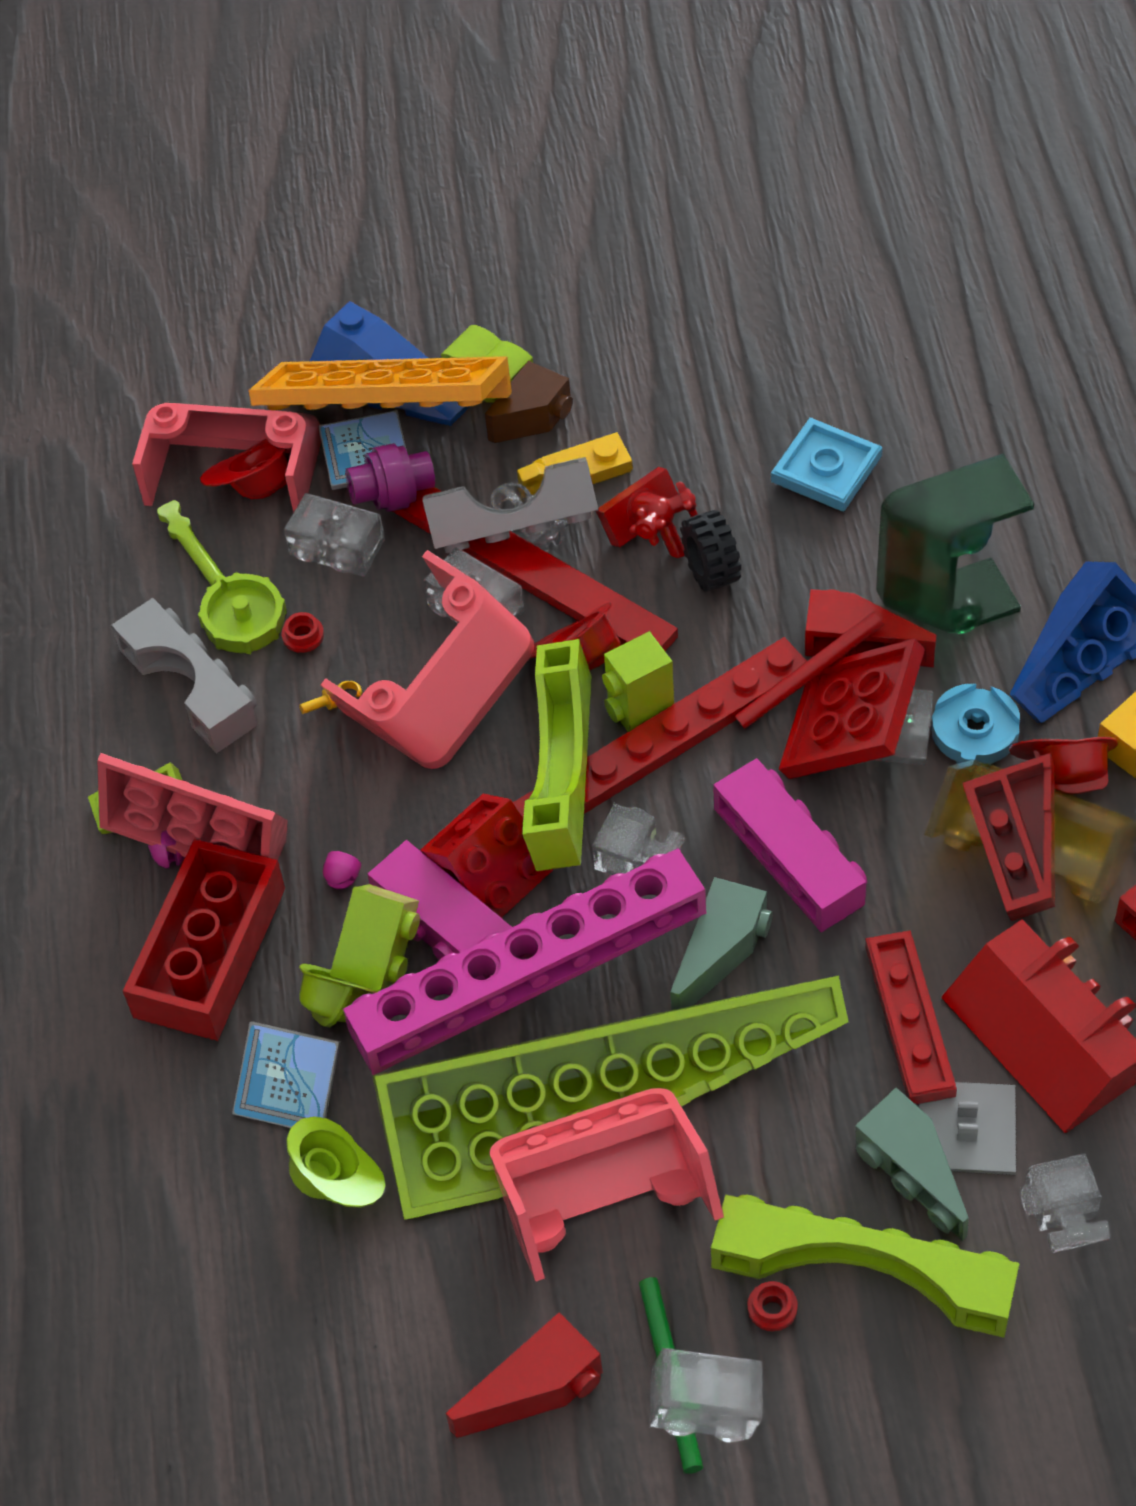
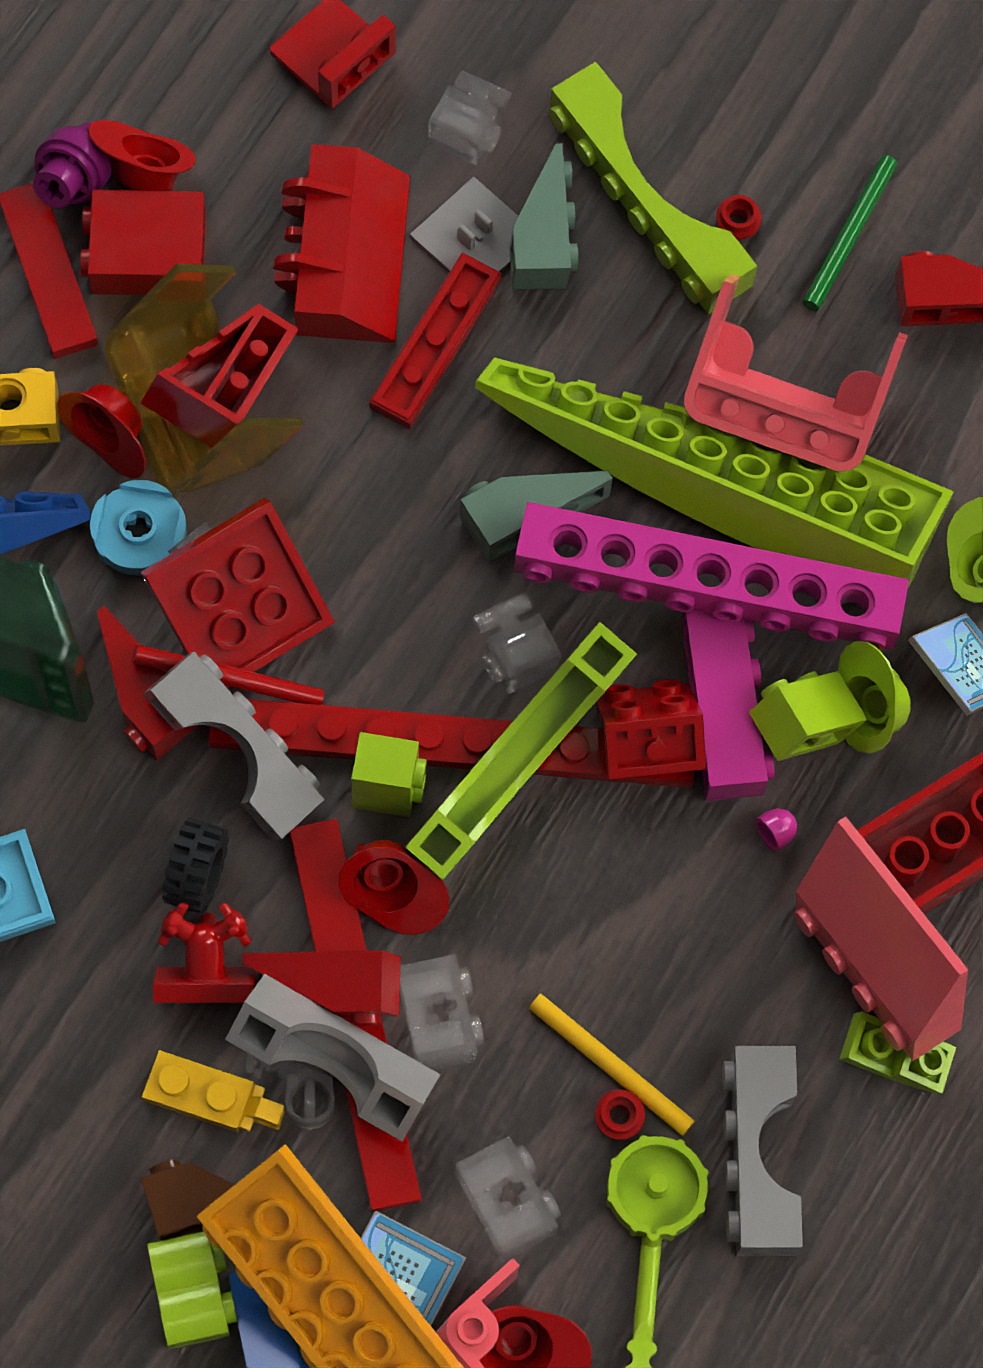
camera: 150 degrees left, 15 degrees up
(325, 699) = (648, 1021): yellow hand -> none
(334, 658) = (611, 1064): none -> yellow bar
(390, 477) = (414, 1193): magenta piece -> none
(457, 682) = (481, 916): coral windscreen -> none
(555, 549) = (343, 981): none -> red slope
(706, 1394) = (847, 180): clear brick -> none
(790, 844) = (393, 544): dark pink brick -> none
(805, 617) = (276, 790): none -> light grey arch

